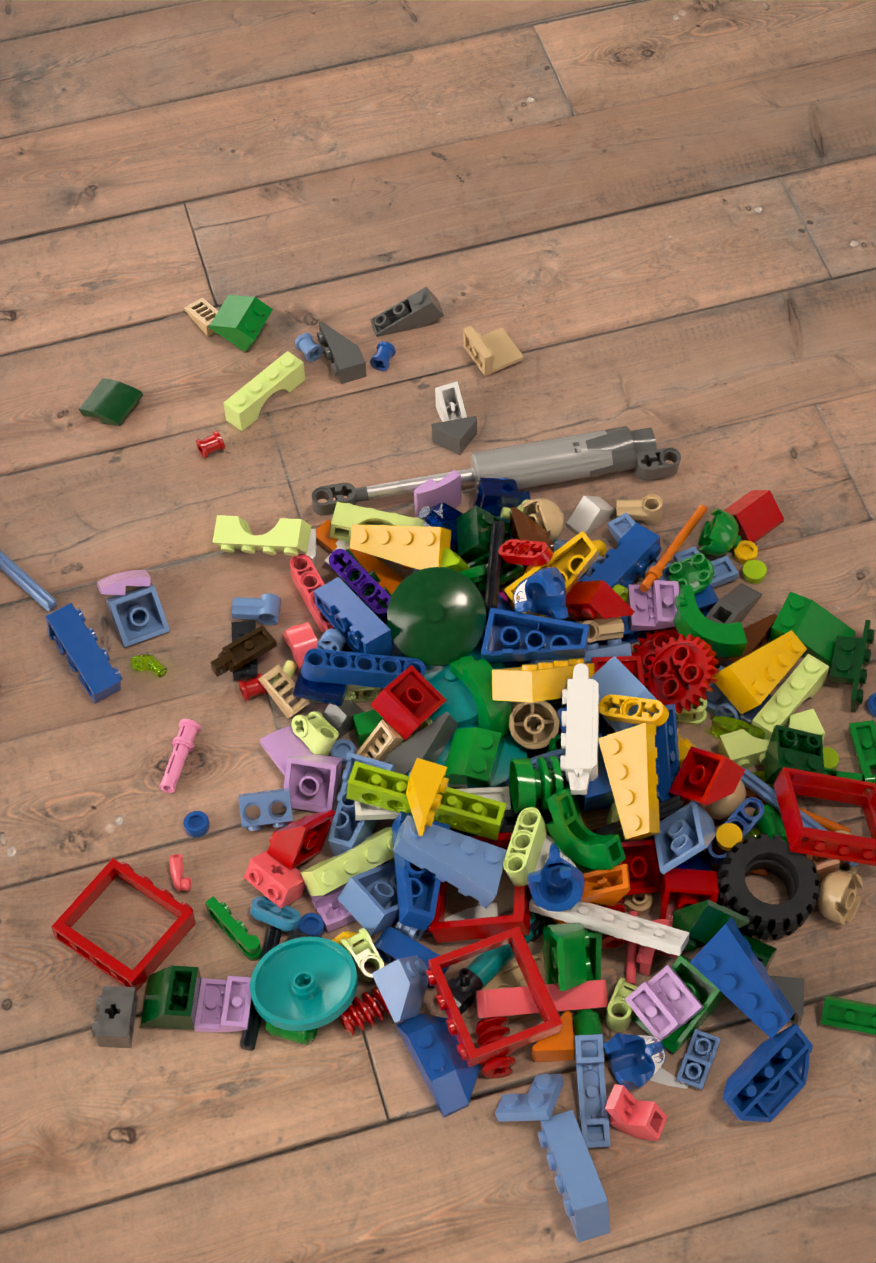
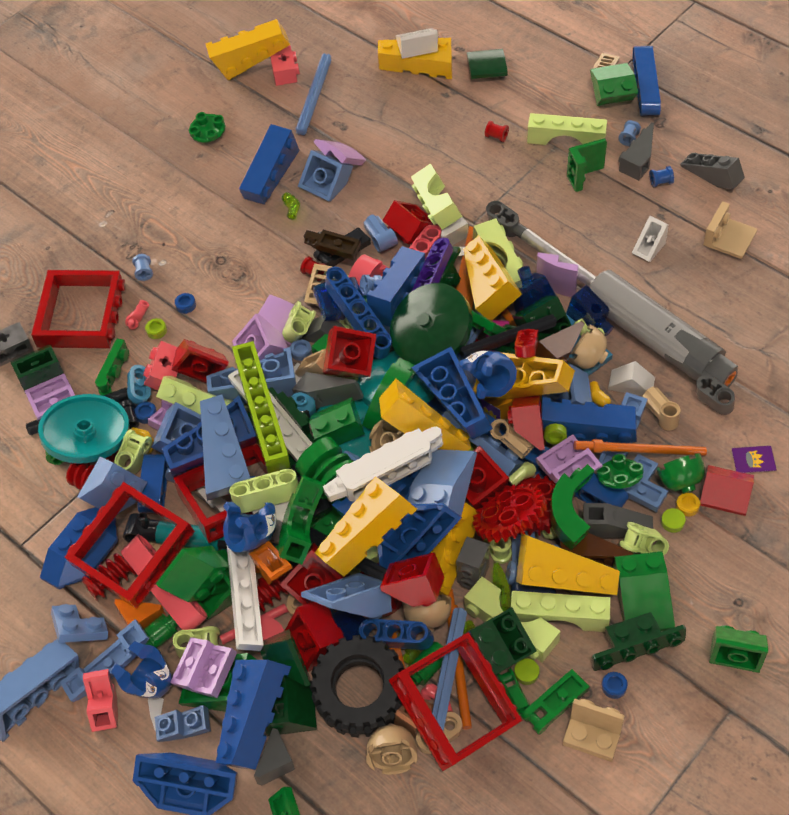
camera: 60 degrees right, 0 degrees up
(46, 433) = (418, 42): none -> white slope
(48, 450) = (432, 63): none -> yellow wedge
(117, 838) = (143, 271): none -> medium blue bush
(182, 746) = (239, 259): bright pink pin -> none
(208, 866) = (156, 328): none -> lime tile
(227, 282) = (646, 80): none -> blue beam
(264, 801) = (216, 329): medium blue brick -> none
(267, 576) = (406, 220): none -> red slope
(322, 404) = (583, 160): none -> green bracket
(424, 791) = (248, 391): yellow slope -> none
(453, 561) = (498, 312): lime slope -> none
(455, 434) = (631, 257): dark grey slope -> none
(624, 703) = (429, 493): yellow beam -> none
(636, 646) = (525, 471): none -> yellowish green arm
(703, 730) = (472, 562): none -> dark grey brick
(728, 835) = (378, 628): yellow tile -> none
(734, 481) = (754, 459): none -> dark purple sticker
(767, 599) = (640, 540): none -> yellowish green piece

